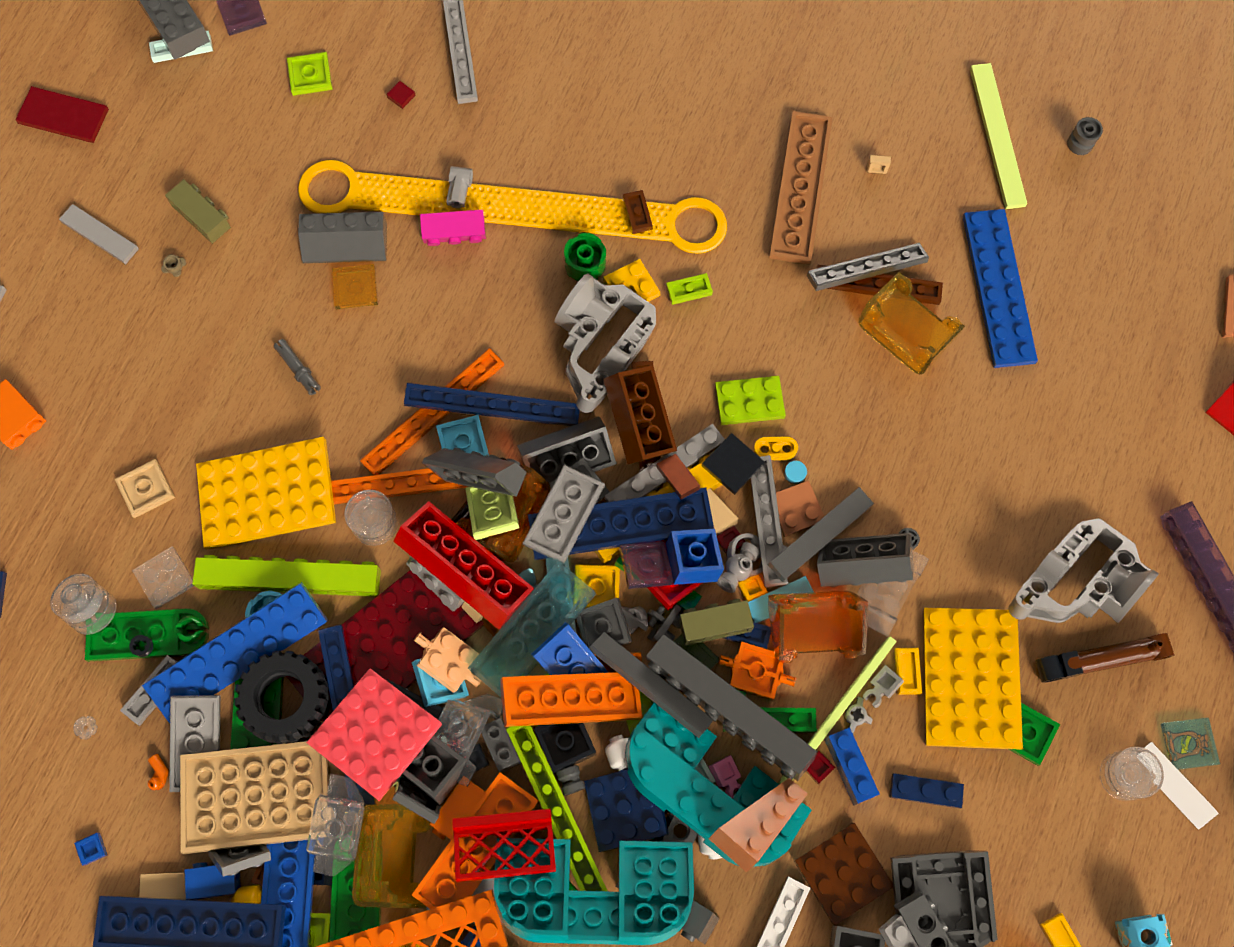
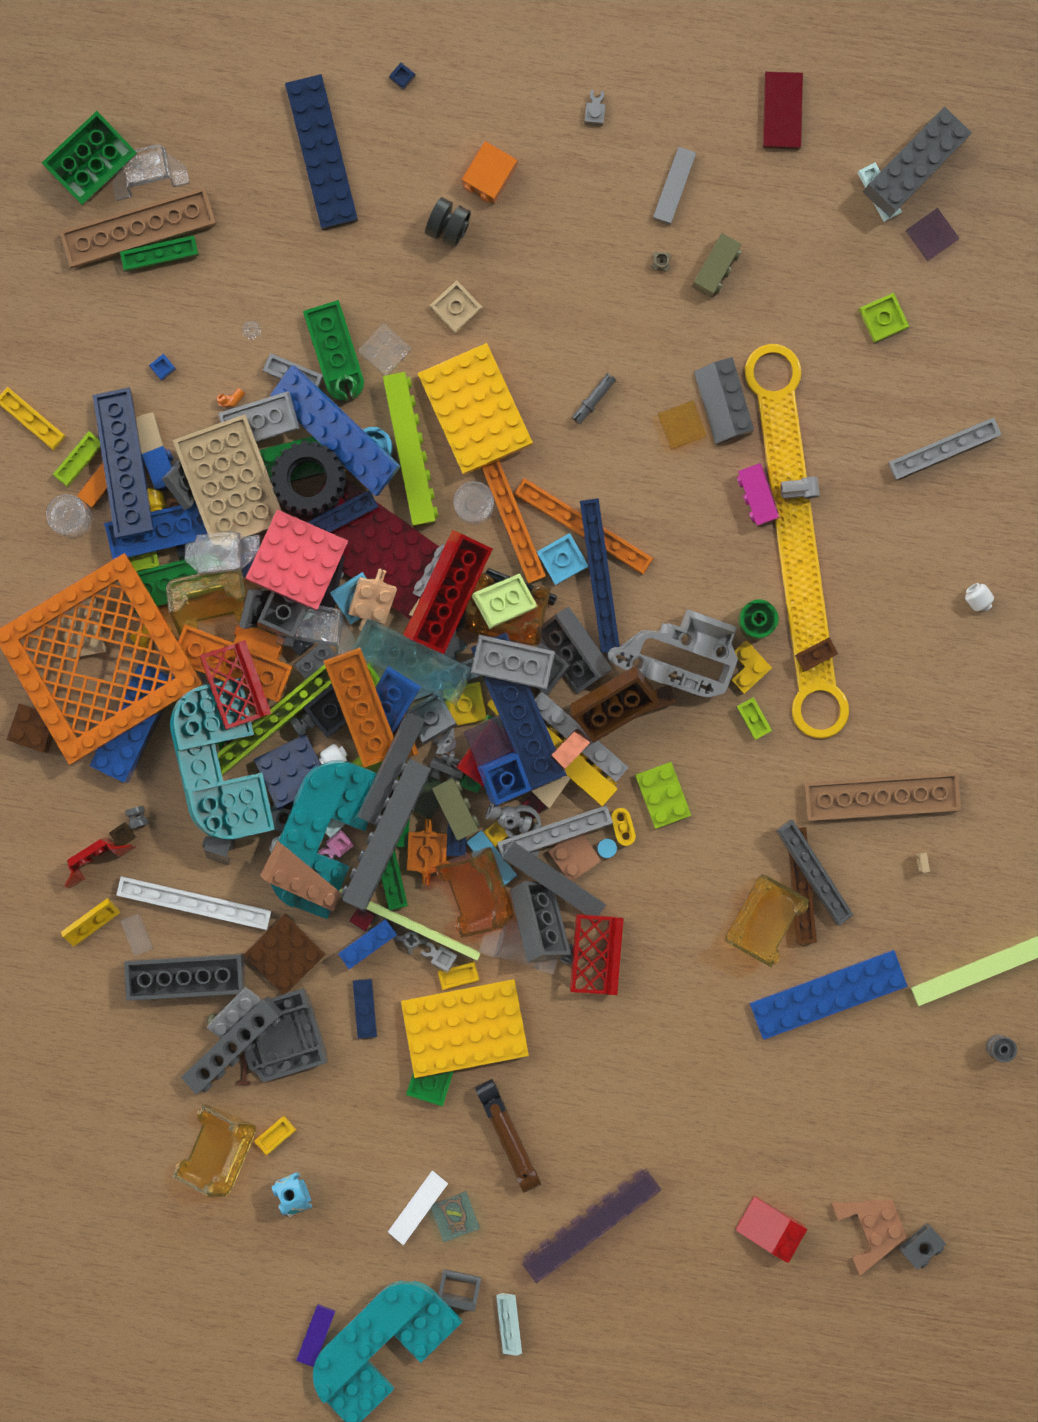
camera: 75 degrees right, 15 degrees up
(48, 464) = (453, 224): none -> pearl dark grey wheel
(83, 604) = (344, 295): clear wheel -> none
(133, 646) = (329, 351): black bush -> none
(401, 94) = (883, 408): dark red tile -> none
(477, 470) = (531, 579): dark grey slope -> none
(619, 52) = (979, 597): none -> white head
(733, 463) = (595, 792): black tile -> none
(917, 494) = (611, 959): none -> red fence
(1112, 589) = (570, 1134): light grey piece -> none
(1131, 774) = (415, 1168): clear wheel -> none

